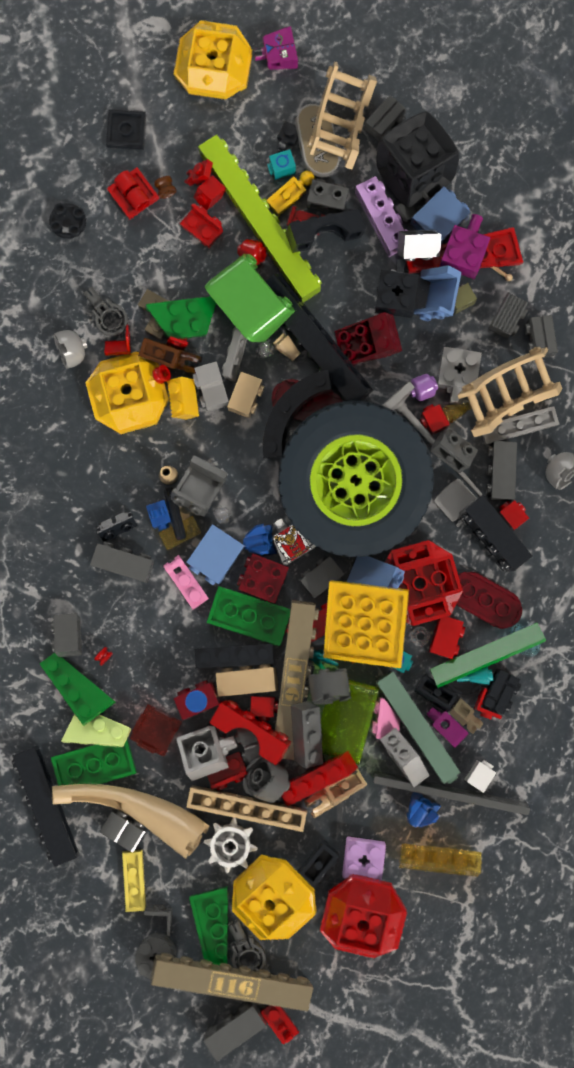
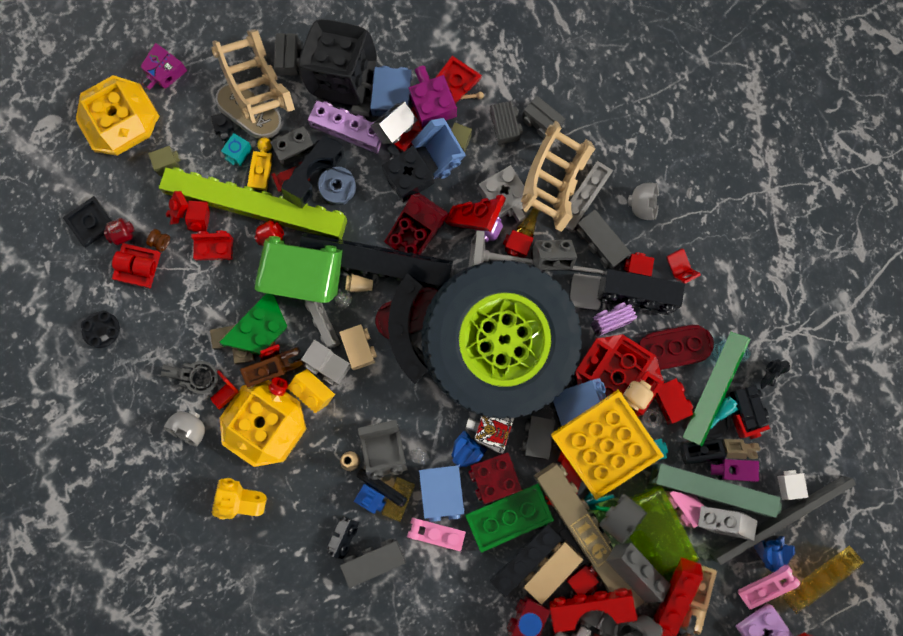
camera: 45 degrees left, 5 degrees down
(60, 429) = (234, 500): none -> yellow piece
(141, 156) = (119, 231): none -> dark red head
(222, 126) = (164, 158): none -> olive brick
(339, 247) = (335, 175): none -> sand blue plate
(394, 830) = (768, 587): none -> bright pink plate
(420, 369) = (476, 215): none -> red wing
(421, 607) = (638, 395): none -> tan head
(458, 539) = (618, 317): none -> lavender brick
(545, 543) = (680, 266): none -> red bracket
(546, 680) = (774, 370): none -> black plate

